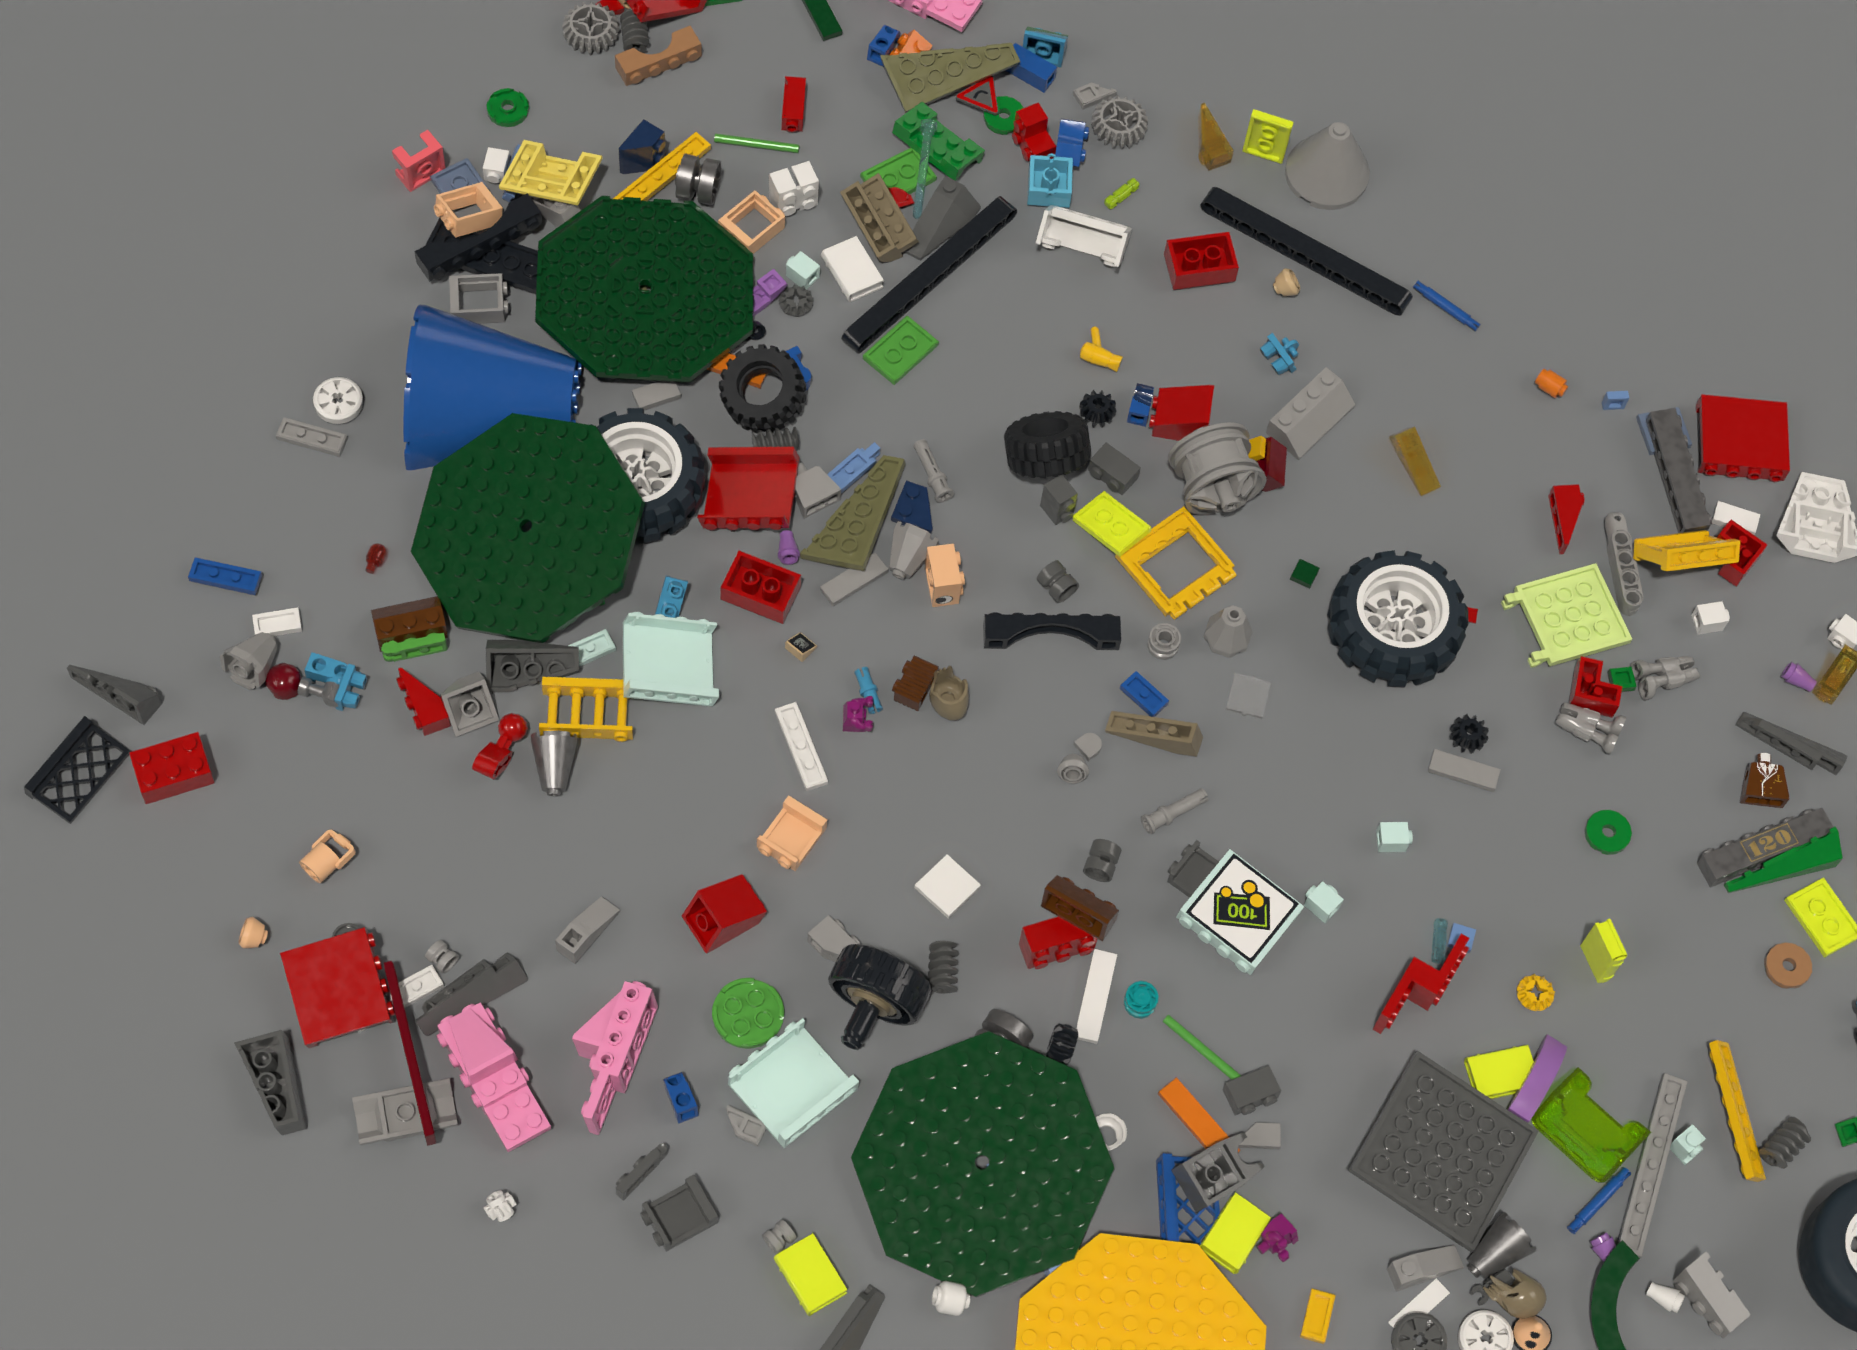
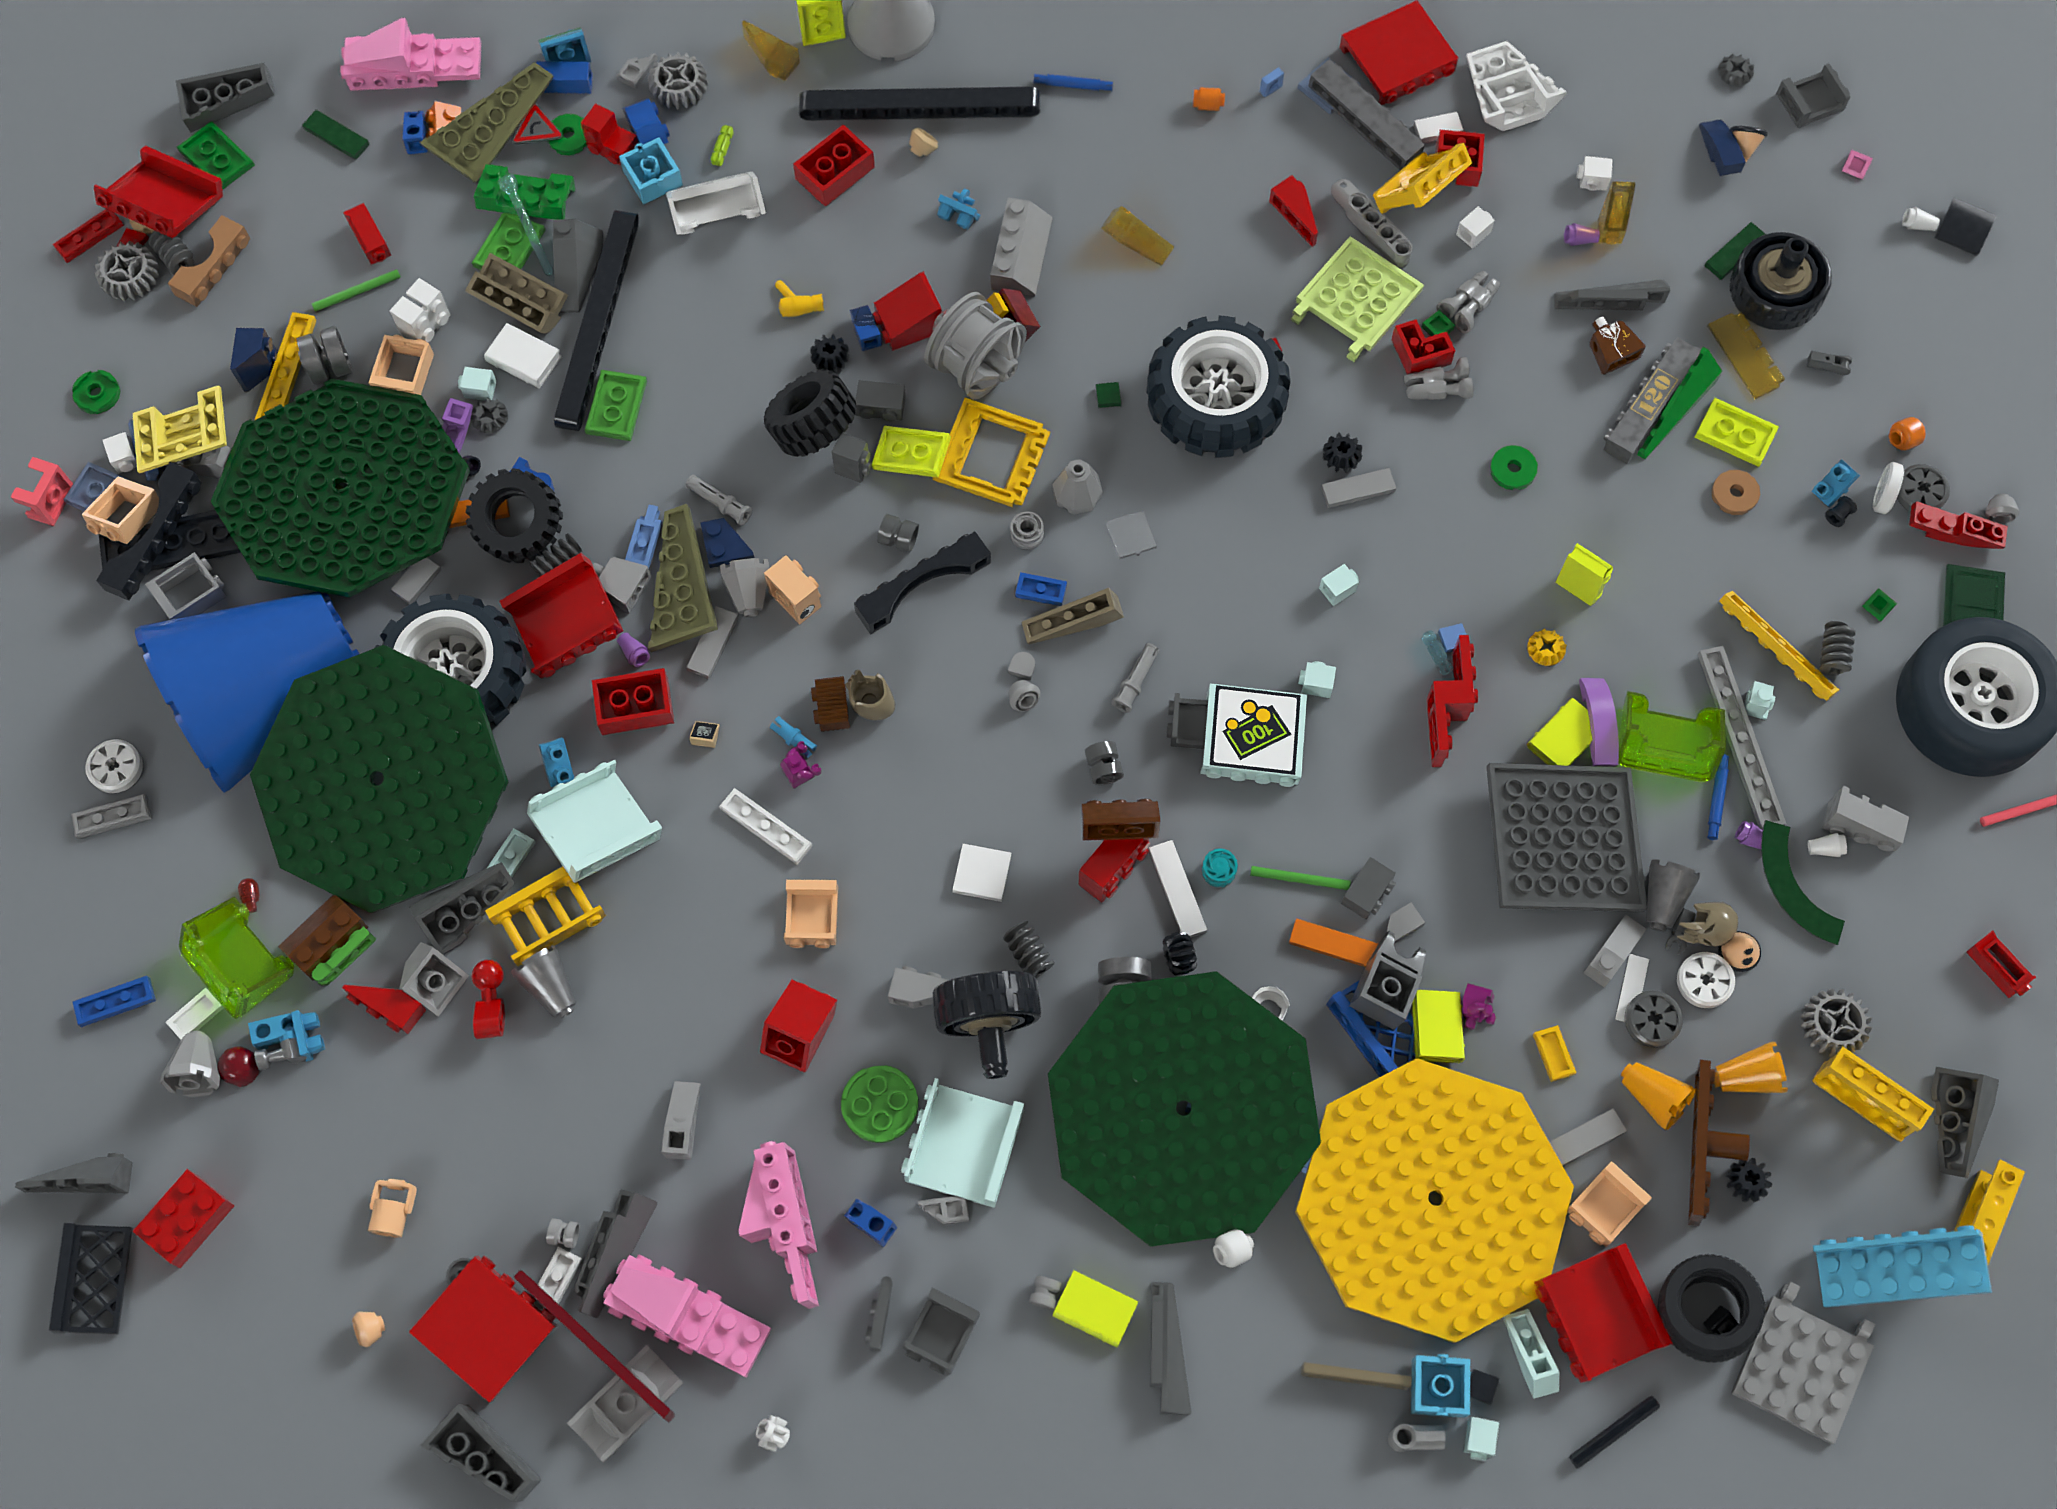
camera: 25 degrees left, 5 degrees up
(332, 596) = (232, 957): none -> clear neon green windscreen
(901, 197) = (524, 263): red tile -> none

